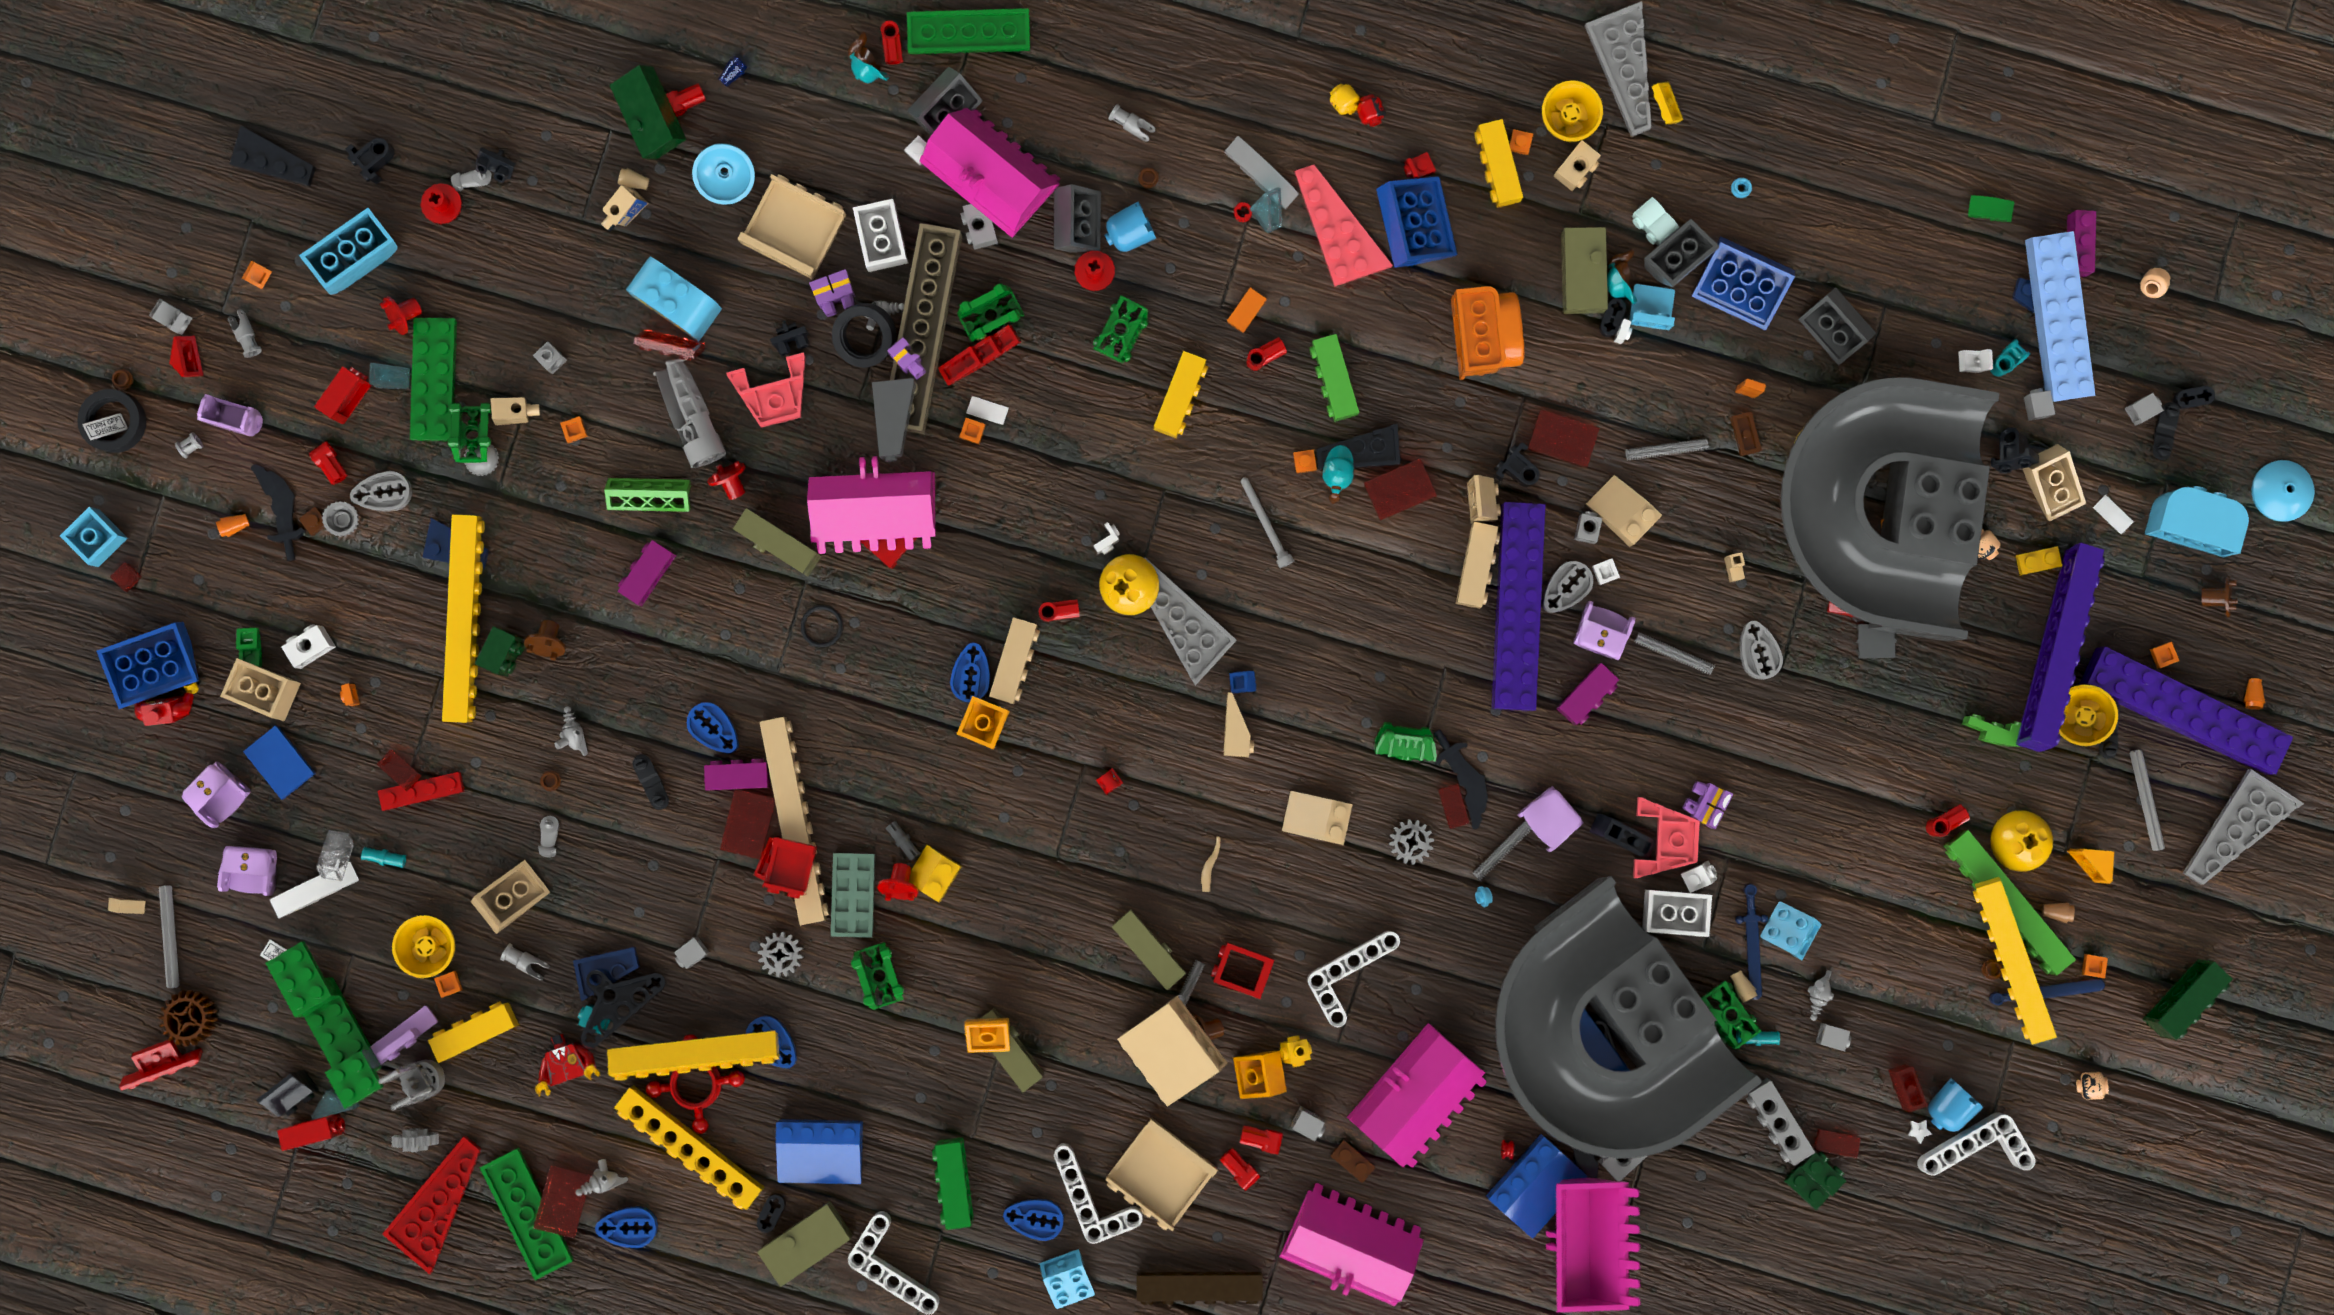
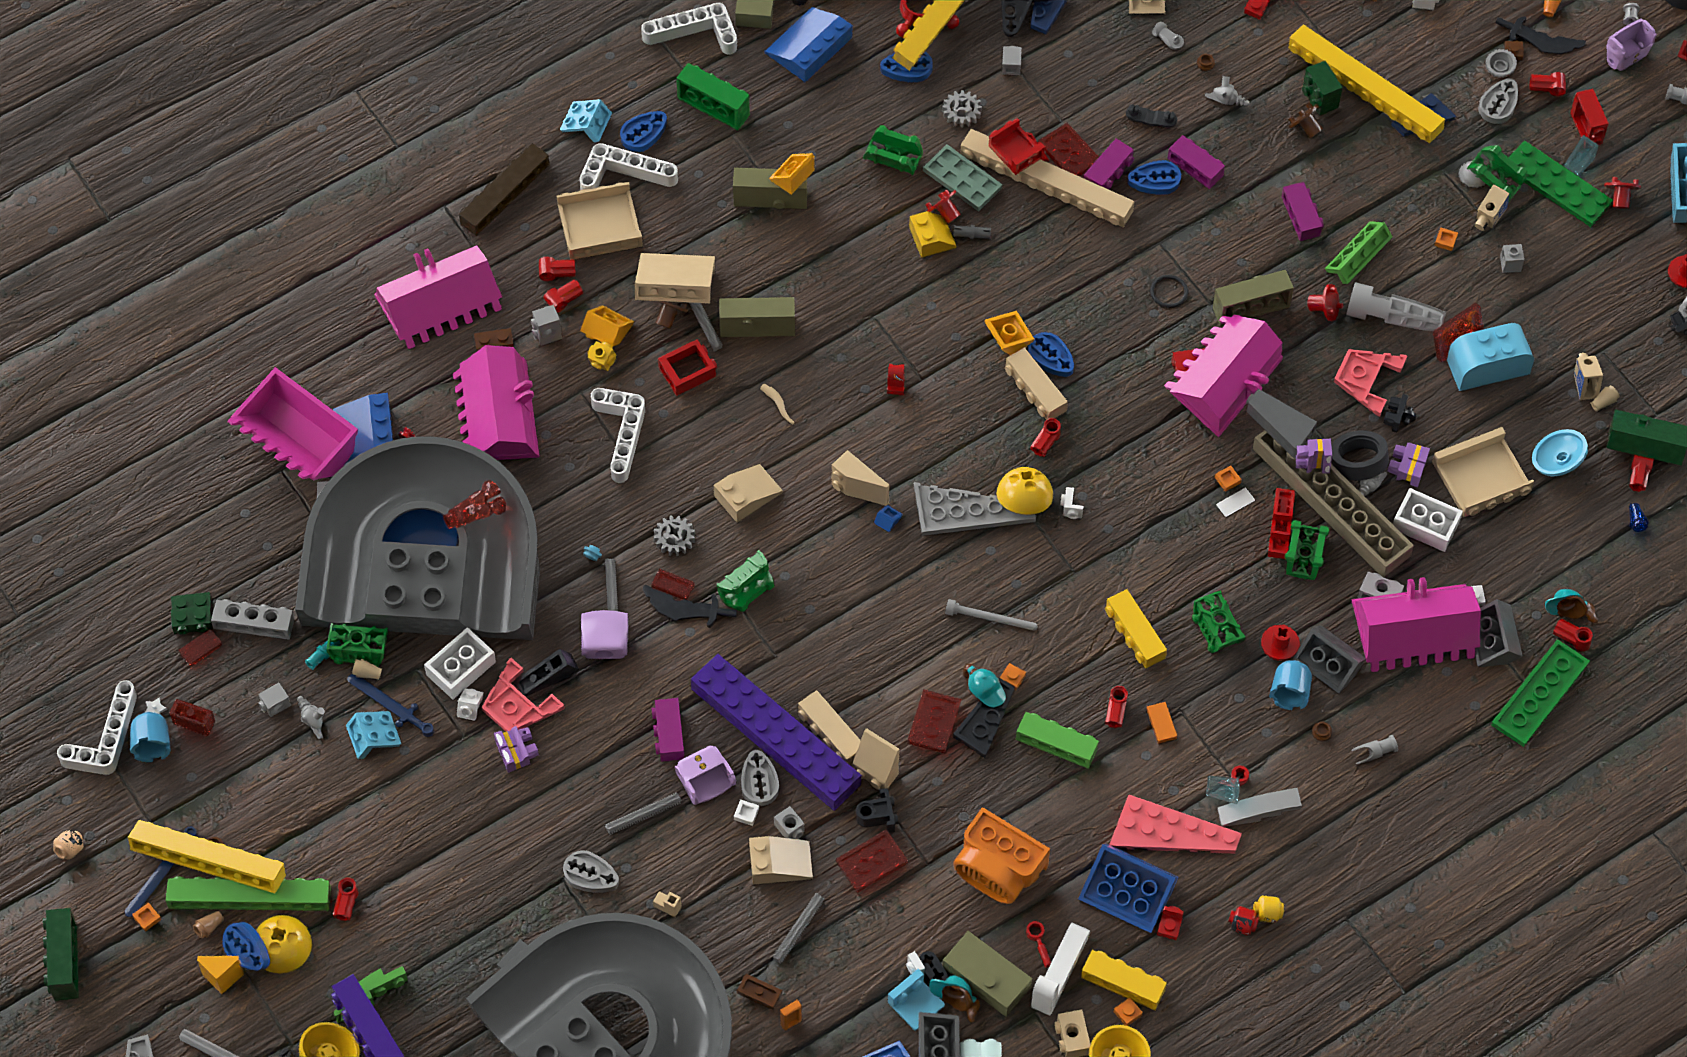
camera: 130 degrees right, 25 degrees down
(668, 704) = (1196, 162): none -> magenta brick
(1521, 251) = (1041, 947): none -> red piece
(1551, 1011) = (476, 506): none -> clear red piece
(1568, 208) = (1049, 988): none -> white beam
(2056, 860) = (255, 946): none -> blue piece

